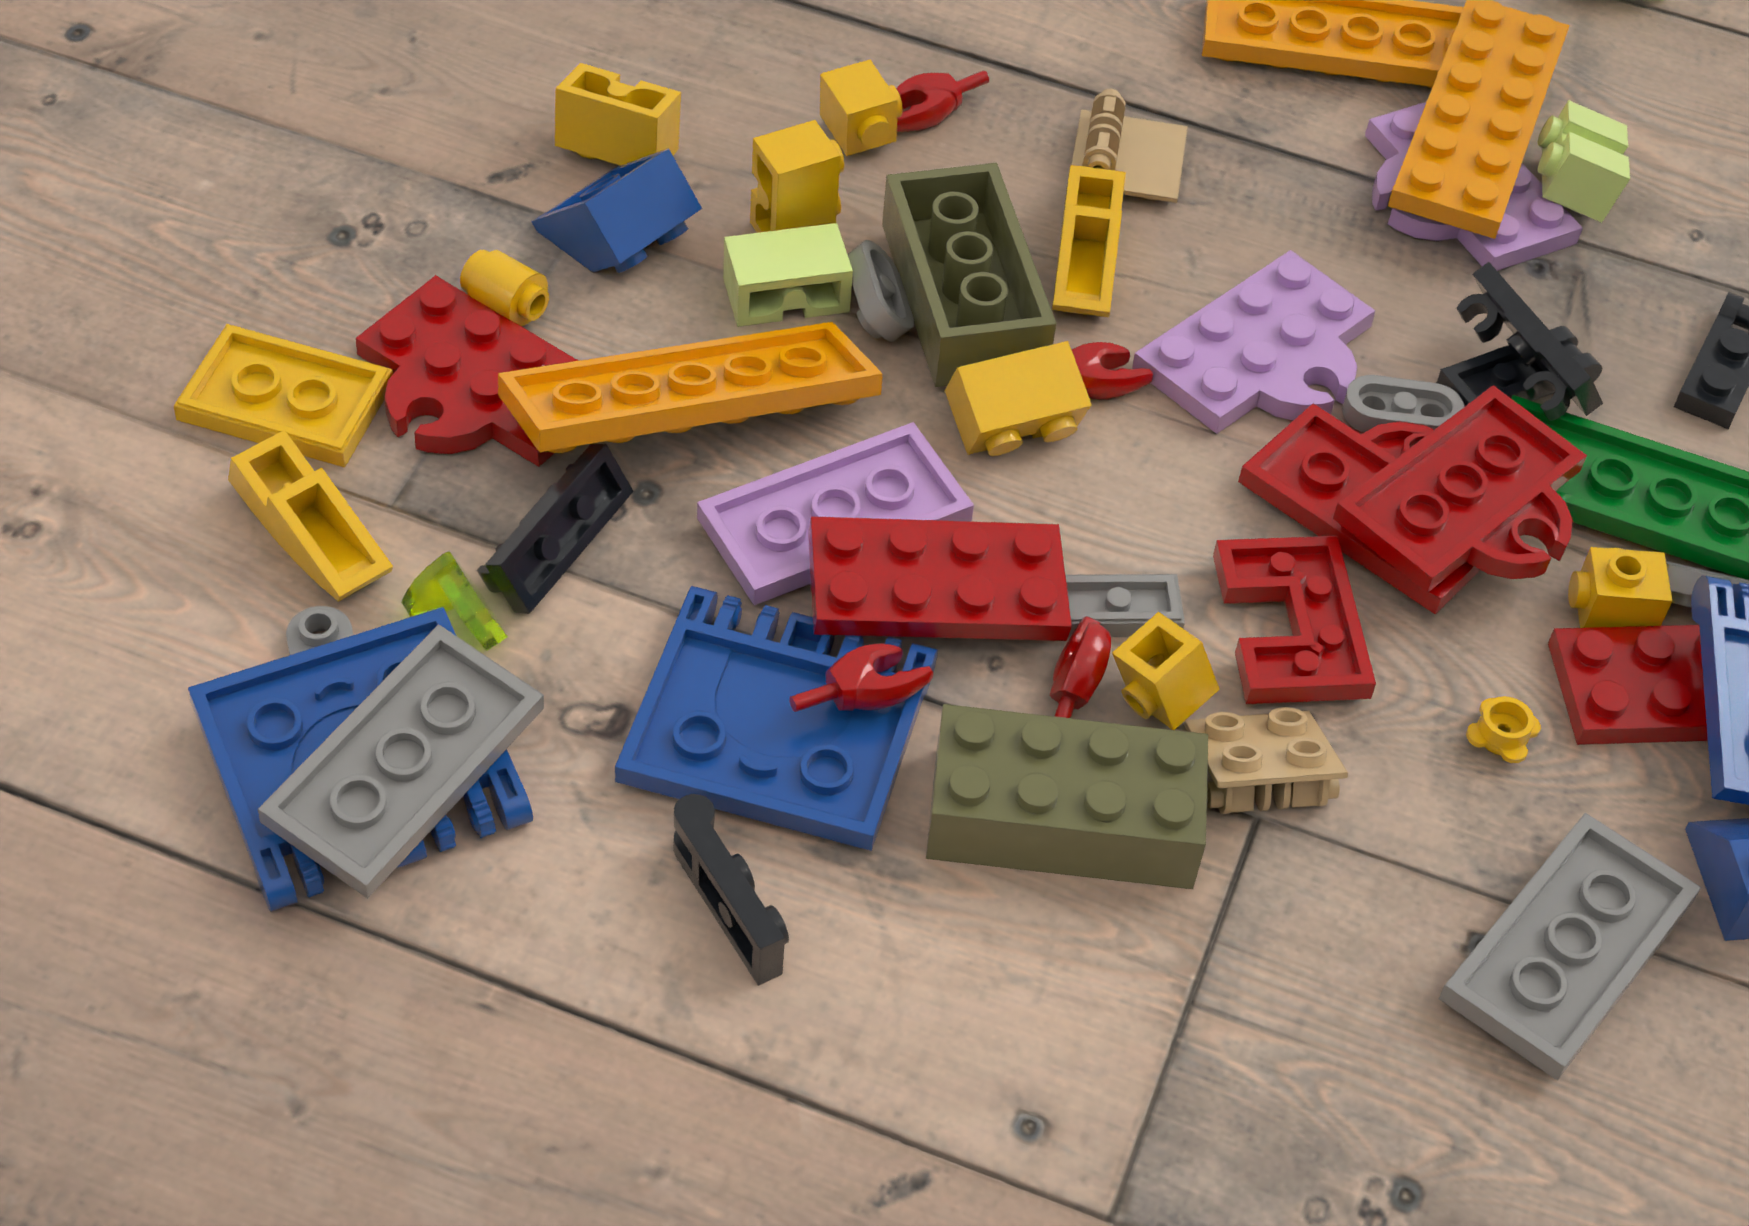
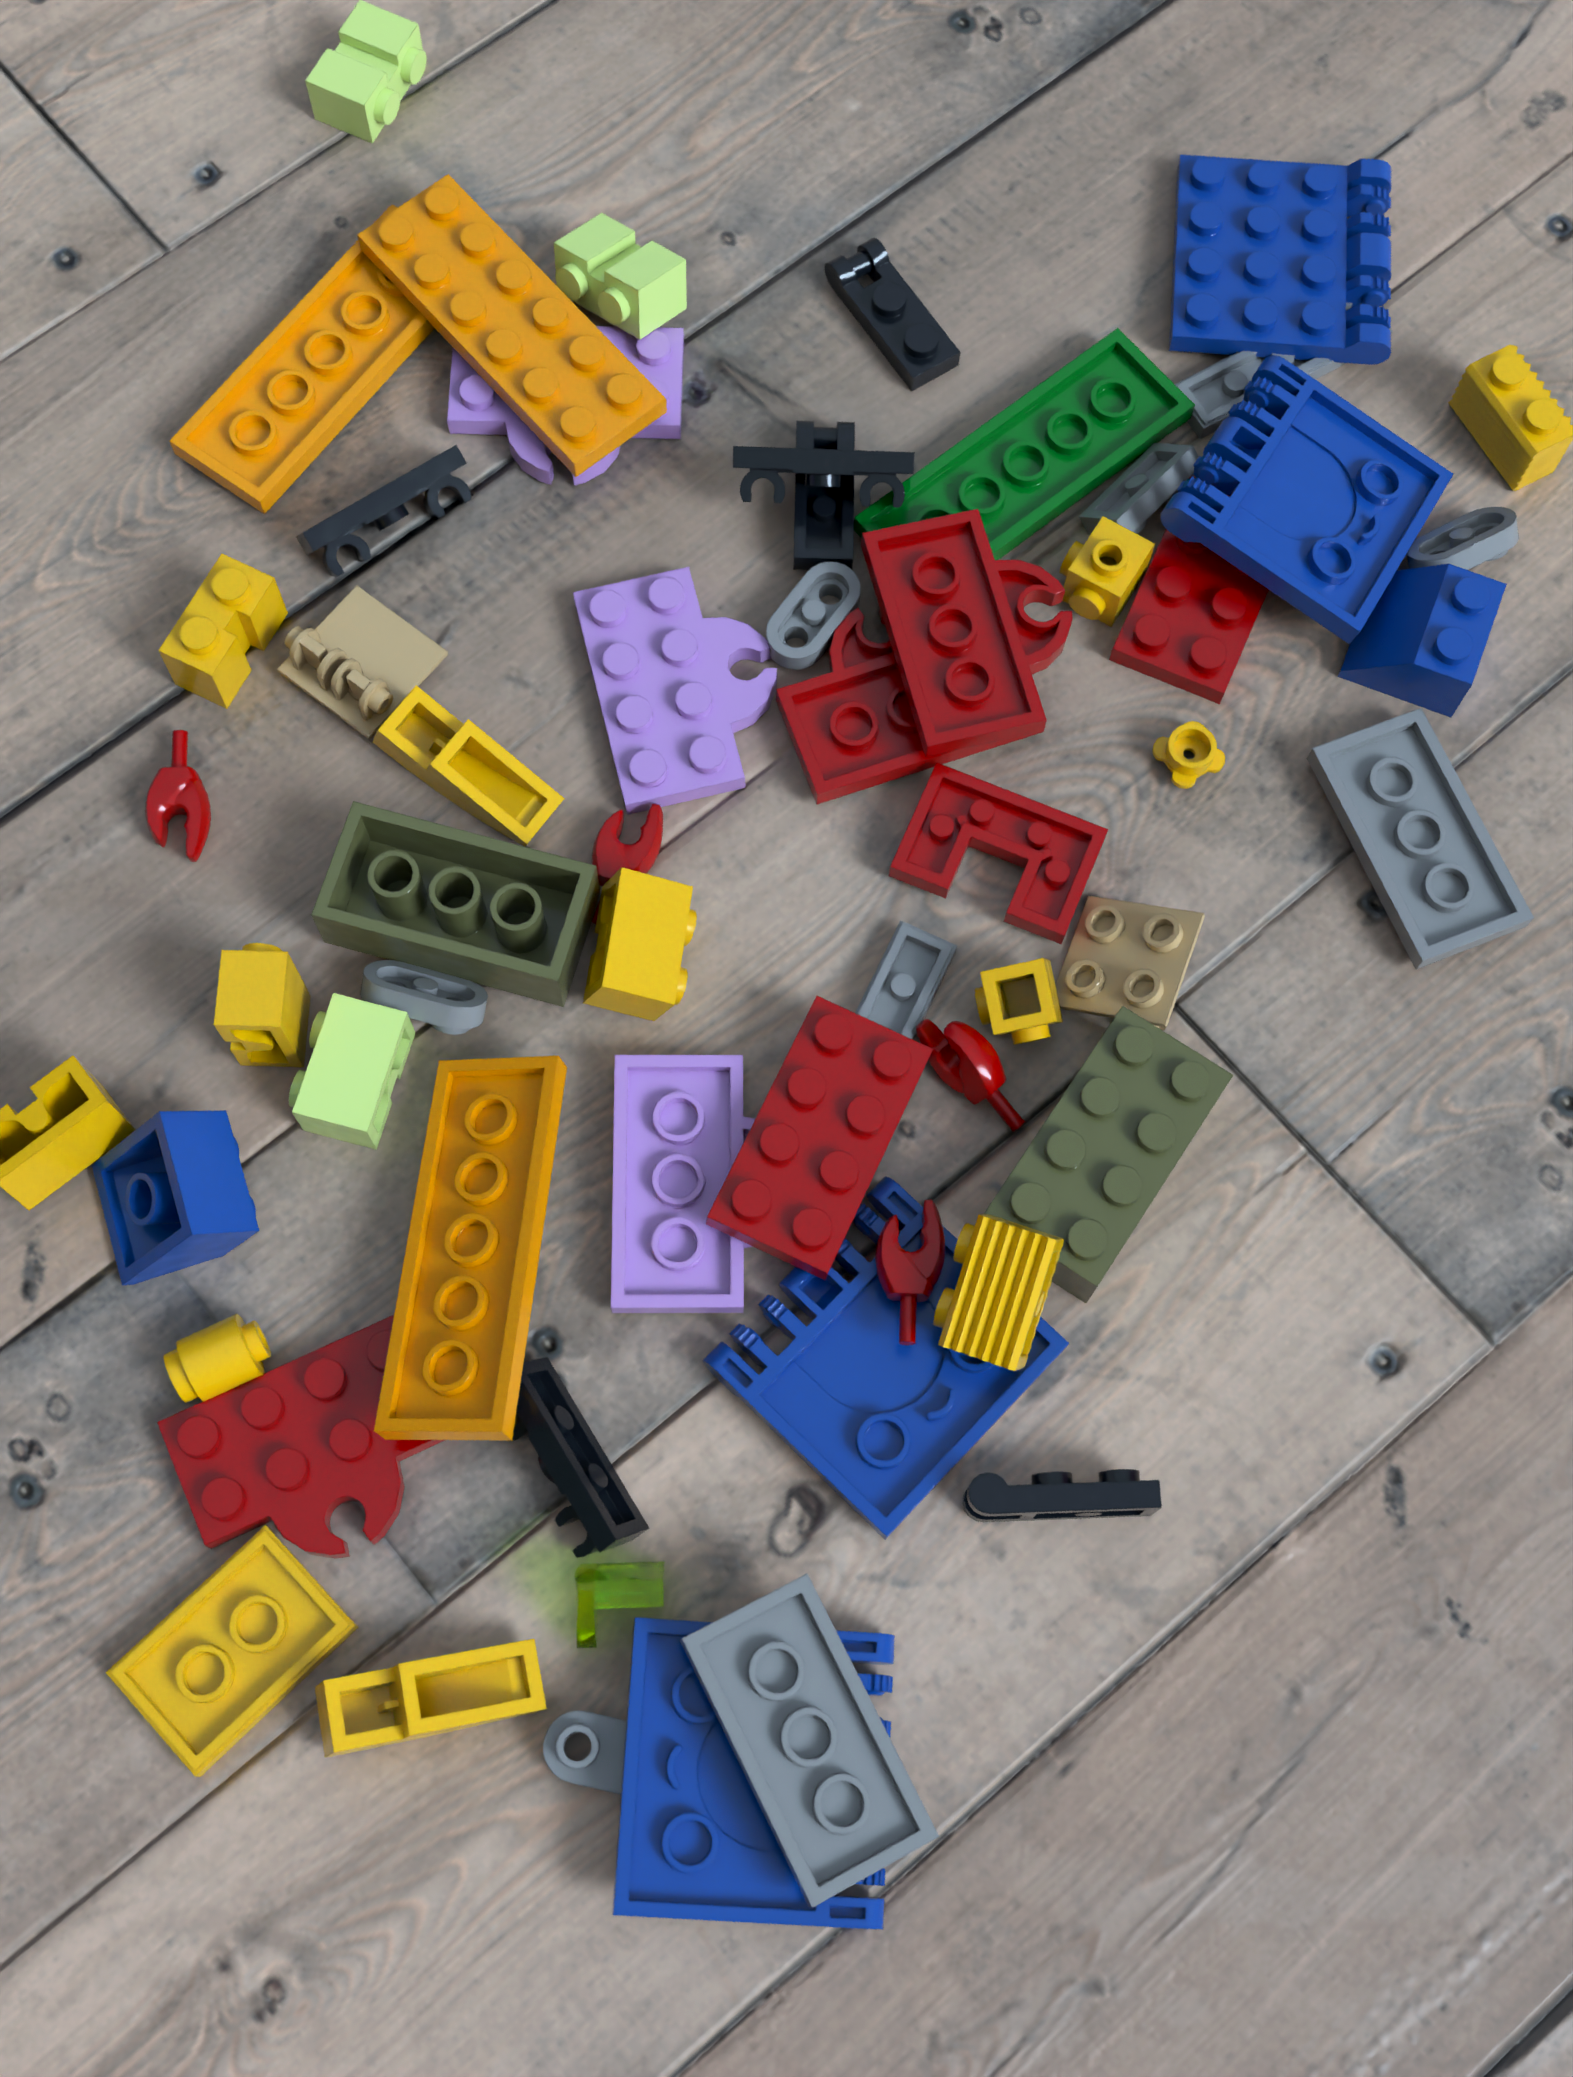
camera: 60 degrees left, 20 degrees up
(859, 107) = (170, 881): yellow brick -> none
(877, 733) = (997, 1291): none -> yellow brick
(1083, 58) = (223, 619): none -> yellow brick
(1265, 111) = (385, 508): none -> black plate

